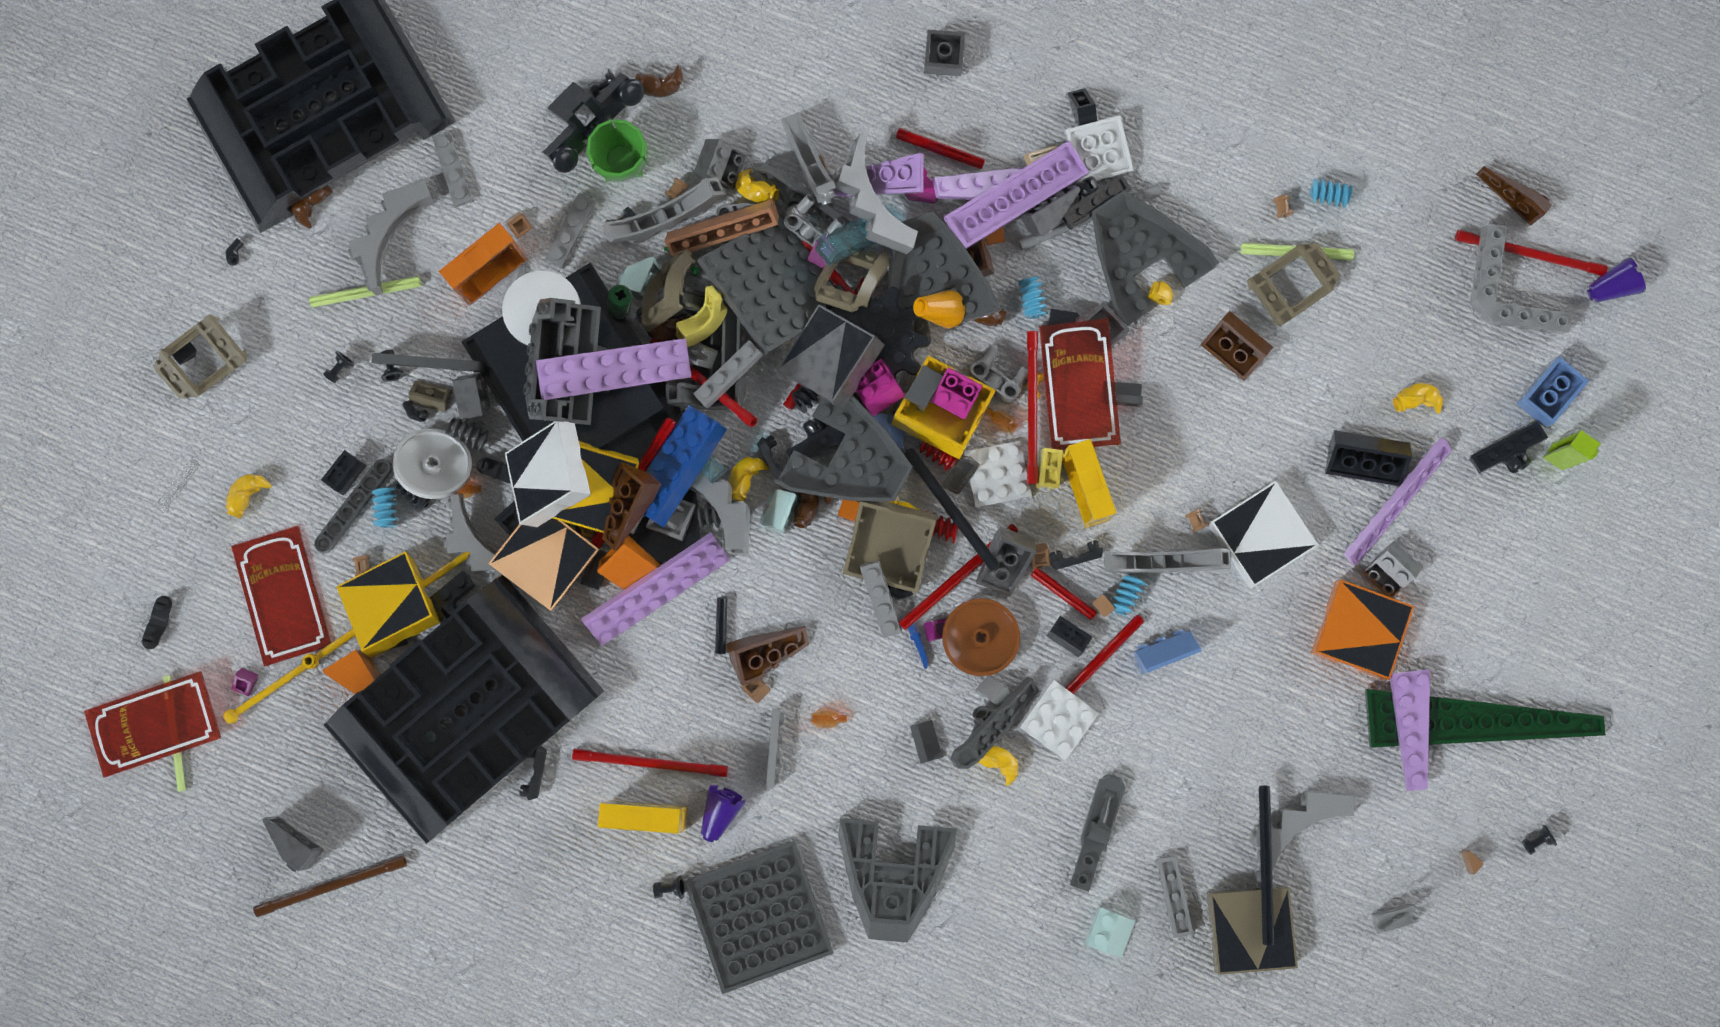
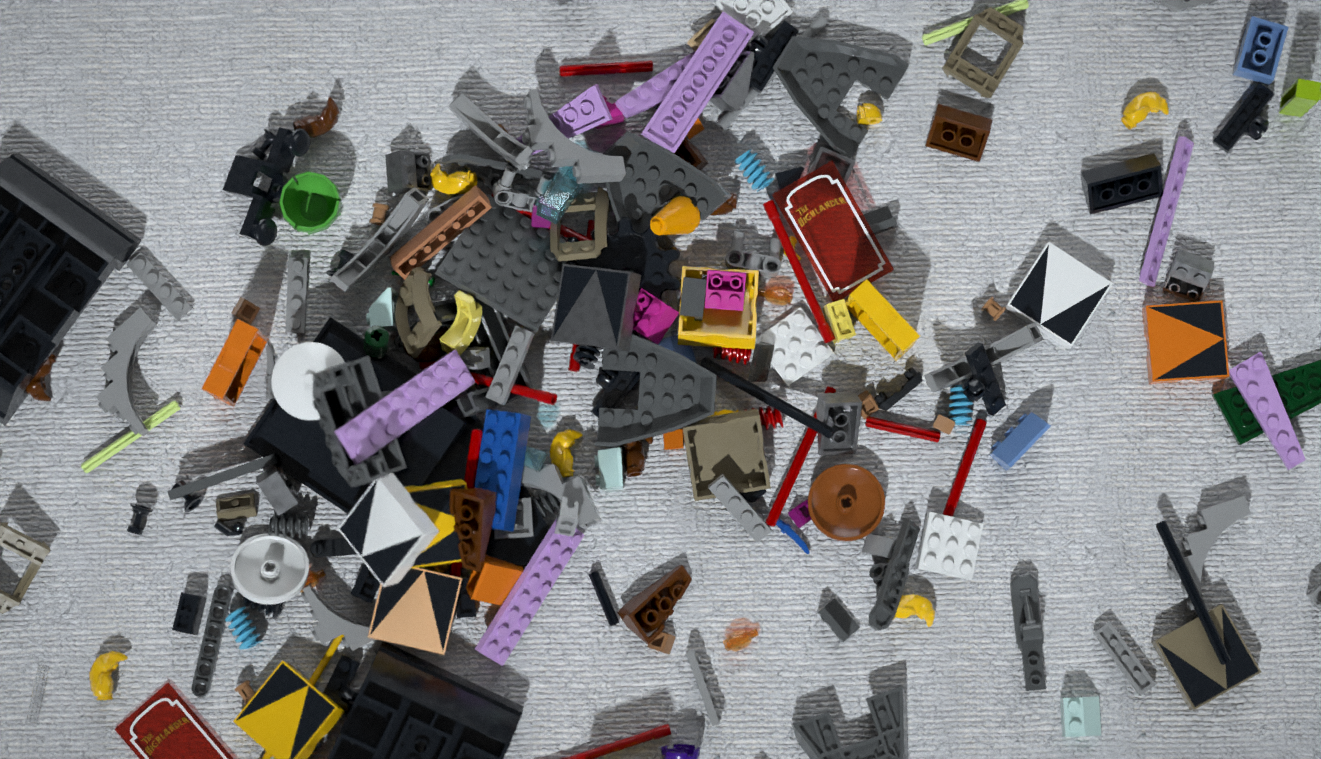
camera: 30 degrees left, 0 degrees up
(716, 537) = (566, 518): none -> light grey hinge
(765, 446) = (569, 416): black piece -> none
(1069, 636) = (925, 466): black hinge -> none
(1157, 581) = (983, 380): none -> black plate

